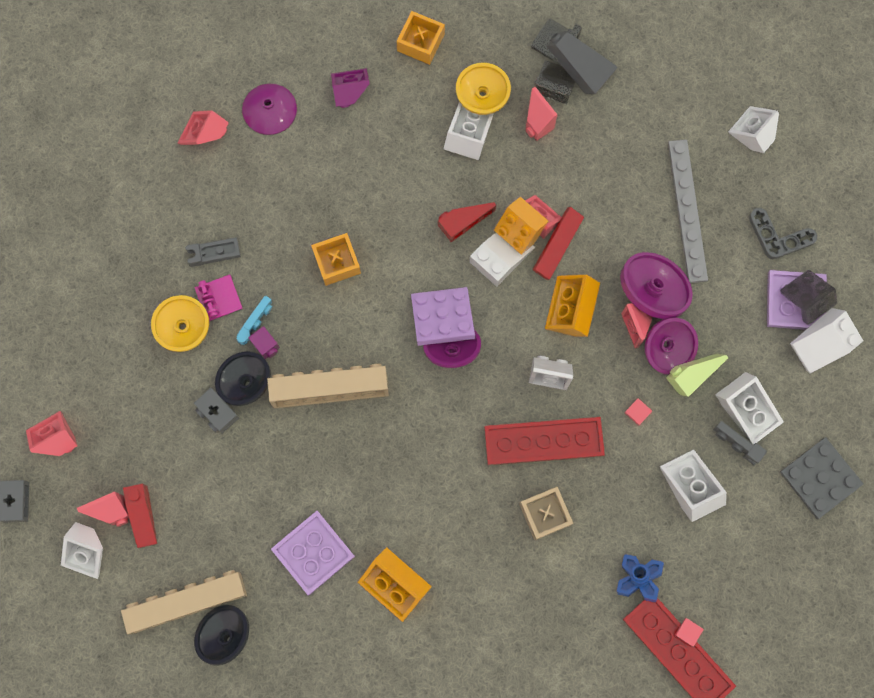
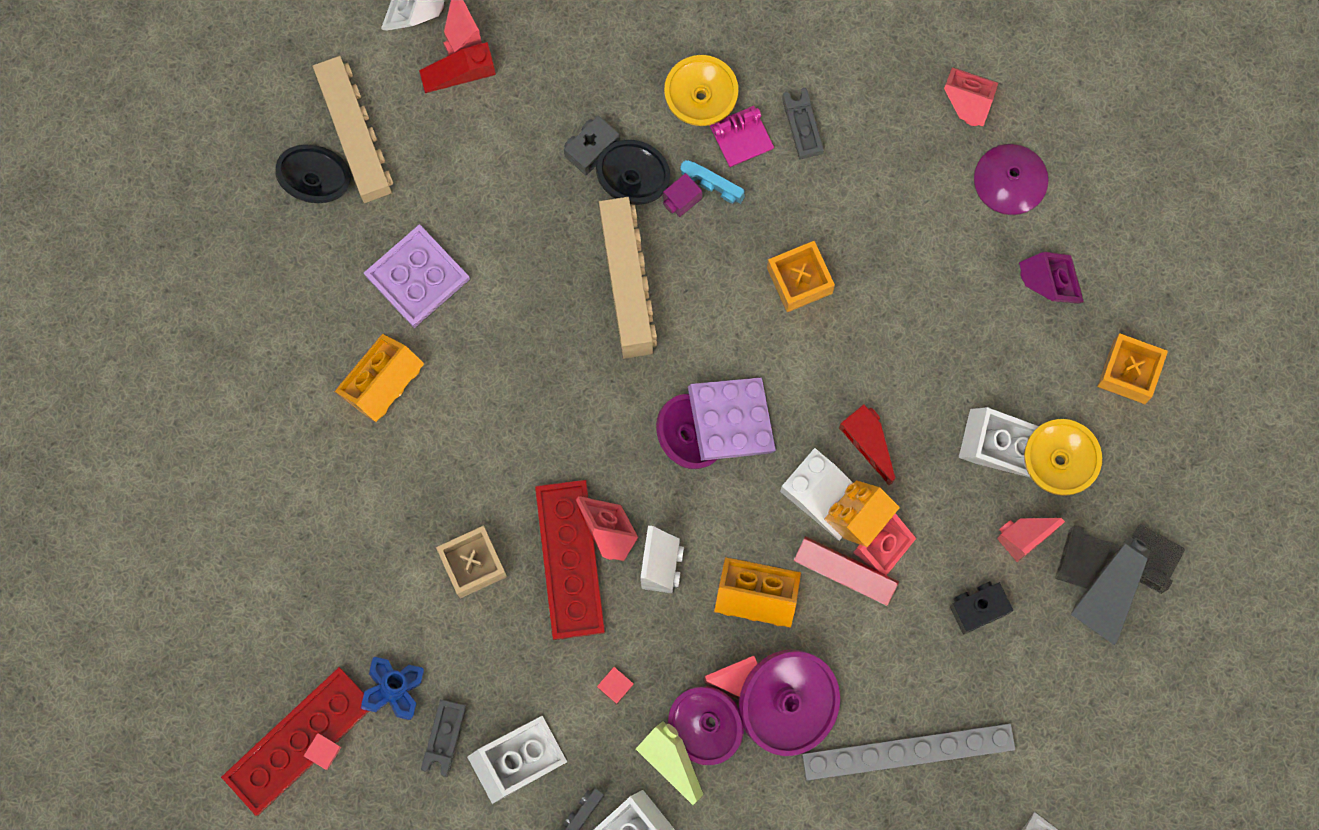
camera: 90 degrees right, 0 degrees up
(522, 409) = (608, 527): none -> coral slope
(588, 153) = (981, 607): none -> black brick
(676, 539) = (444, 736): none -> dark grey plate

